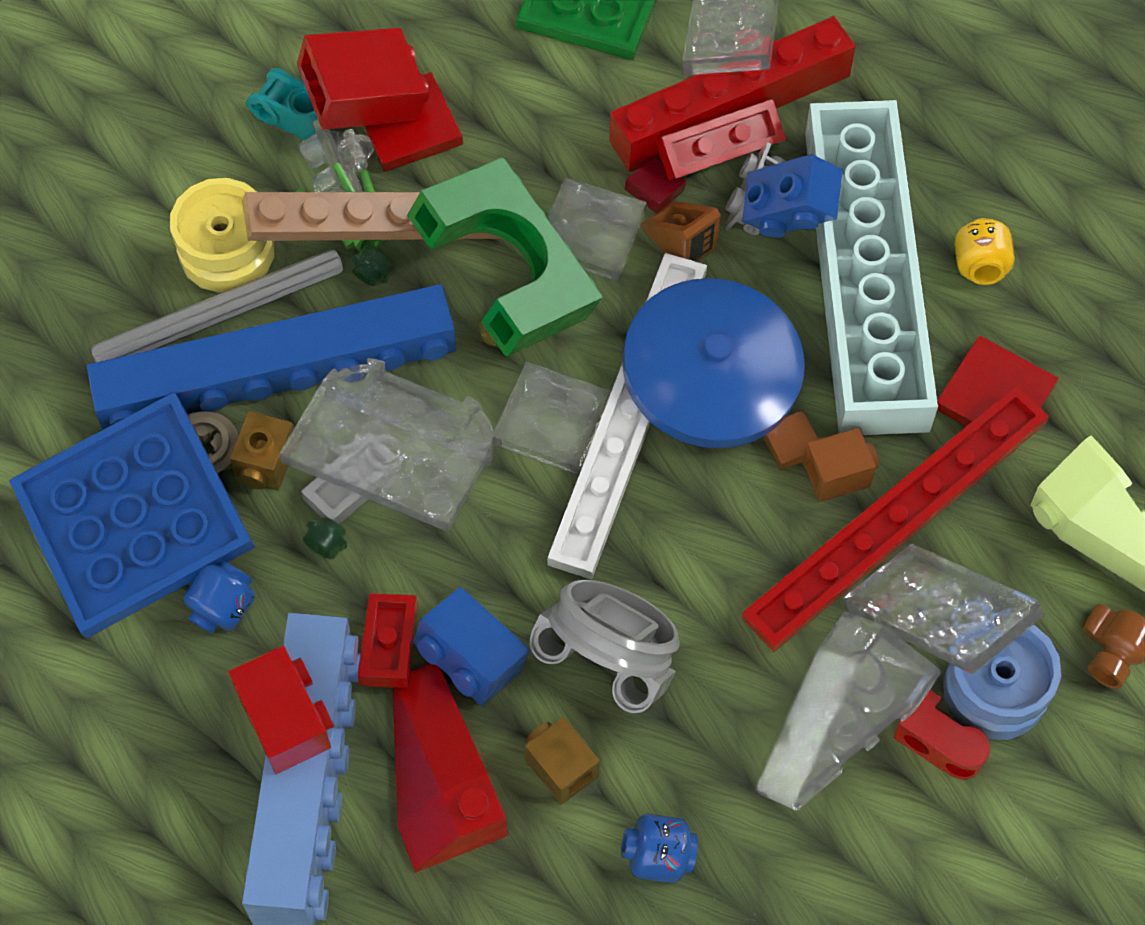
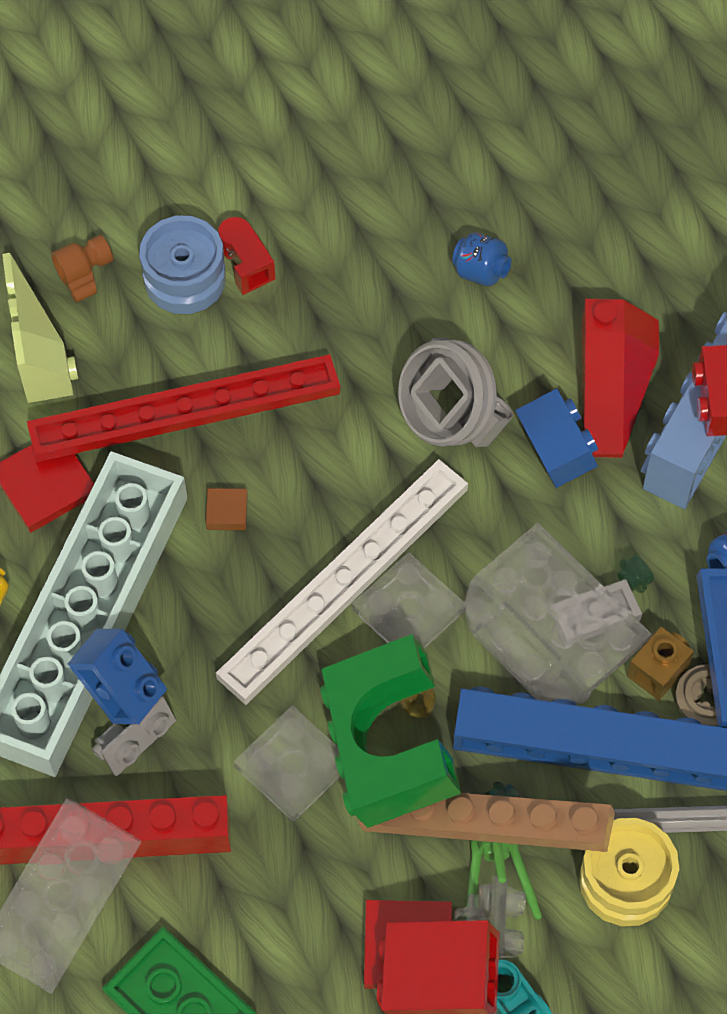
camera: 155 degrees left, 0 degrees up
(388, 640) = (615, 473): red plate -> none
(561, 759) = (523, 341): pearl gold brick -> none
(653, 186) = (216, 776): dark red tile -> none
(685, 230) = (217, 718): dark orange slope -> none
(713, 363) = (258, 582): blue dish -> none
(720, 139) = (140, 783): plate -> none
(840, 464) = (203, 464): dark orange brick -> none
(849, 696) = (298, 290): clear wedge -> none
(944, 607) = (201, 305): clear plate -> none

